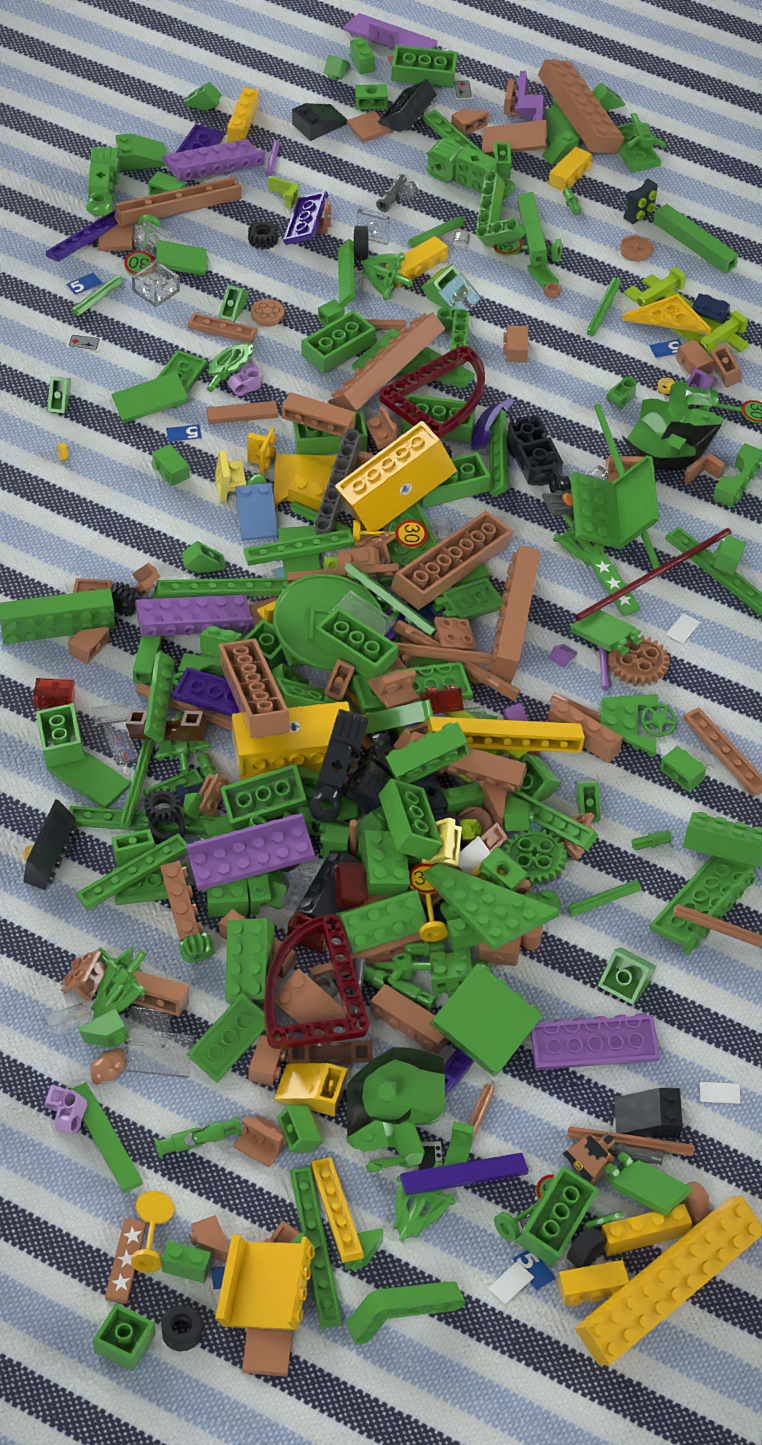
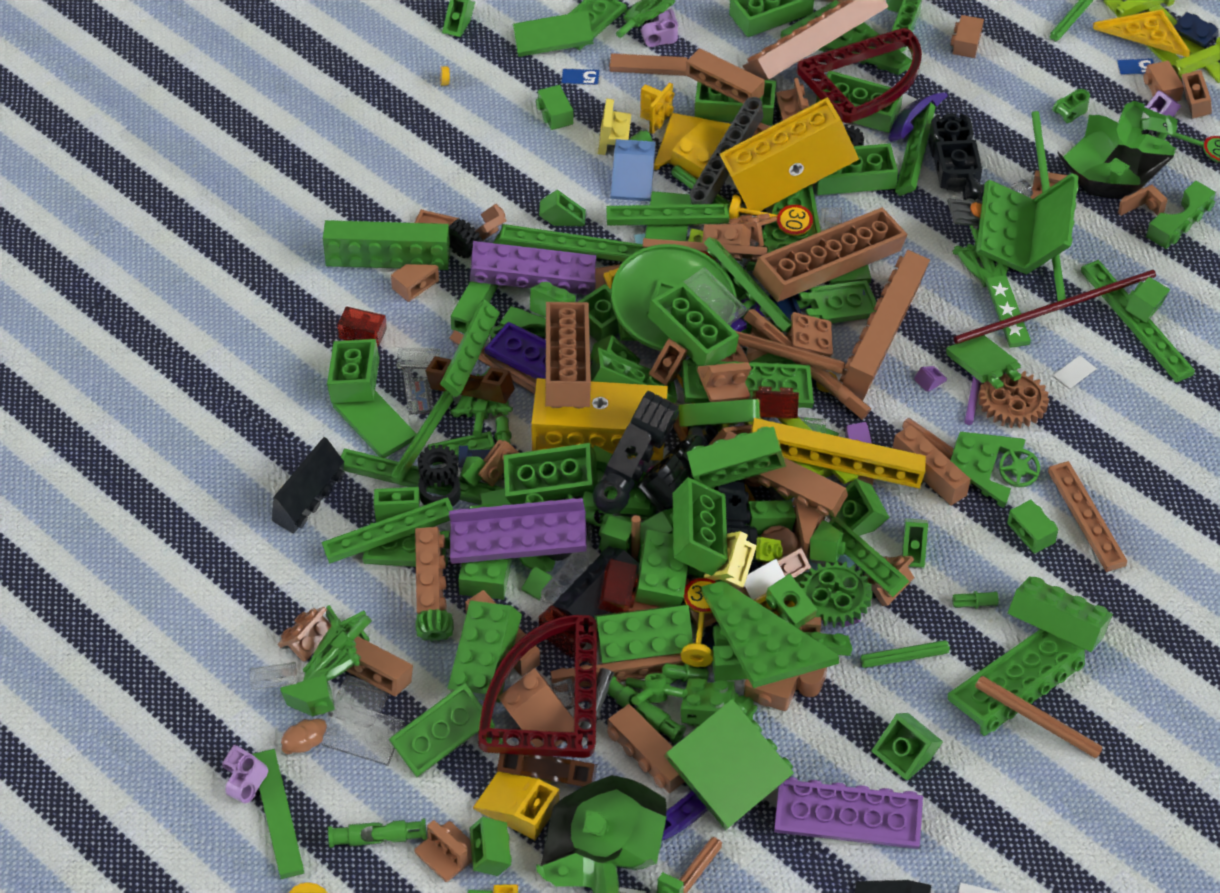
camera: 15 degrees right, 0 degrees up
(258, 892) = (518, 576): bright green bracket -> none
(266, 1063) = (474, 766): nougat brick -> none
(664, 385) = (1120, 103): yellow tile -> none

